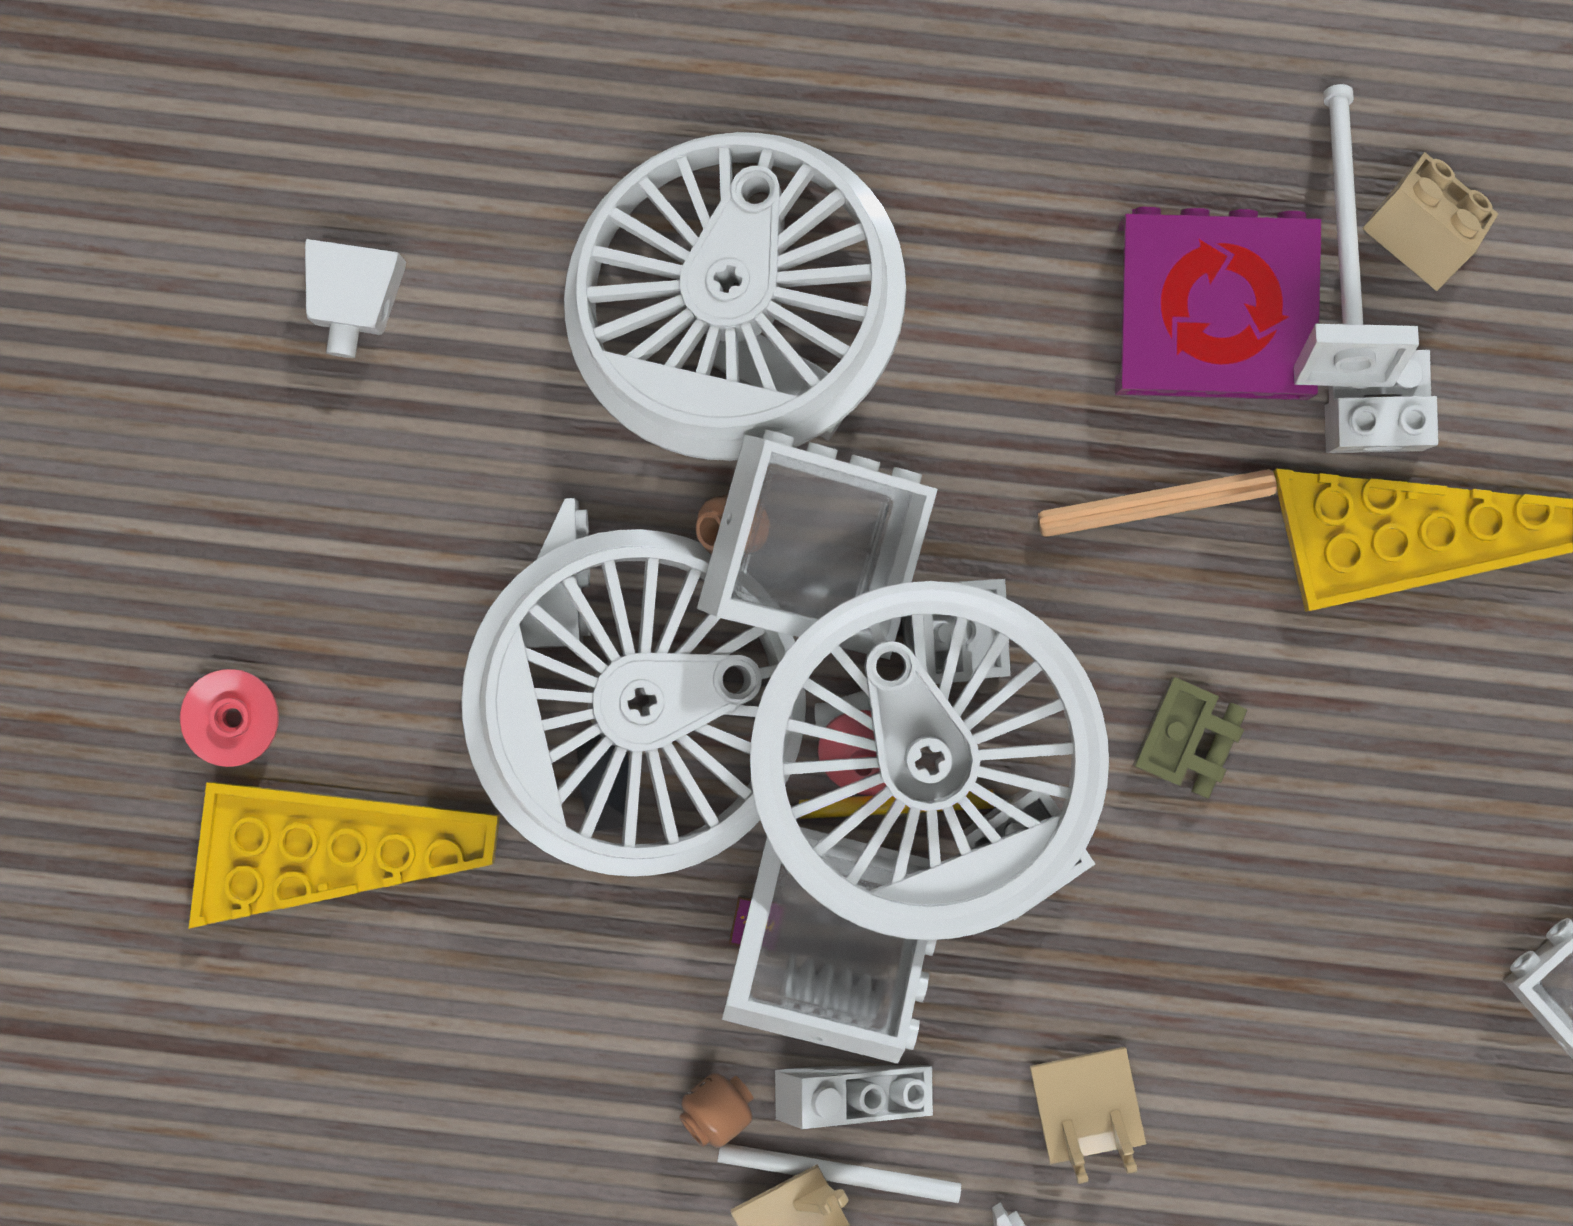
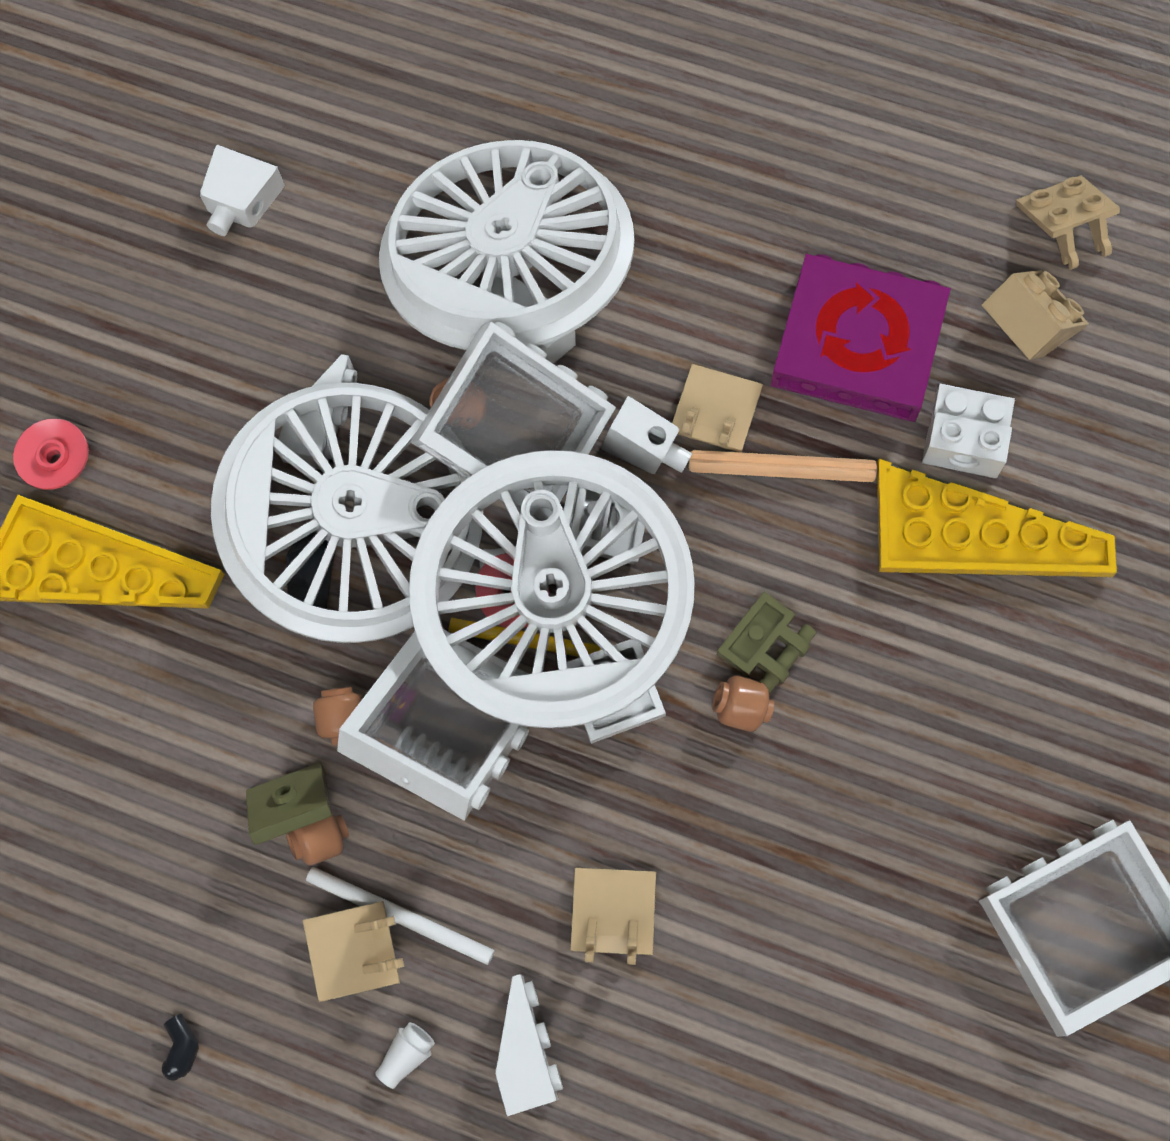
camera: 20 degrees right, 15 degrees down
(673, 1084) = (287, 803): none -> olive plate
(700, 959) = (333, 710): none -> nougat head
(852, 1094) = (428, 851): white slope -> none
(965, 511) = (644, 439): none -> white torso
(1056, 447) = (717, 408): none -> tan plate
(1181, 823) = (742, 703): none -> nougat head
(1351, 351) = (951, 370): white tile -> none
(1444, 62) = (1068, 206): none -> tan plate

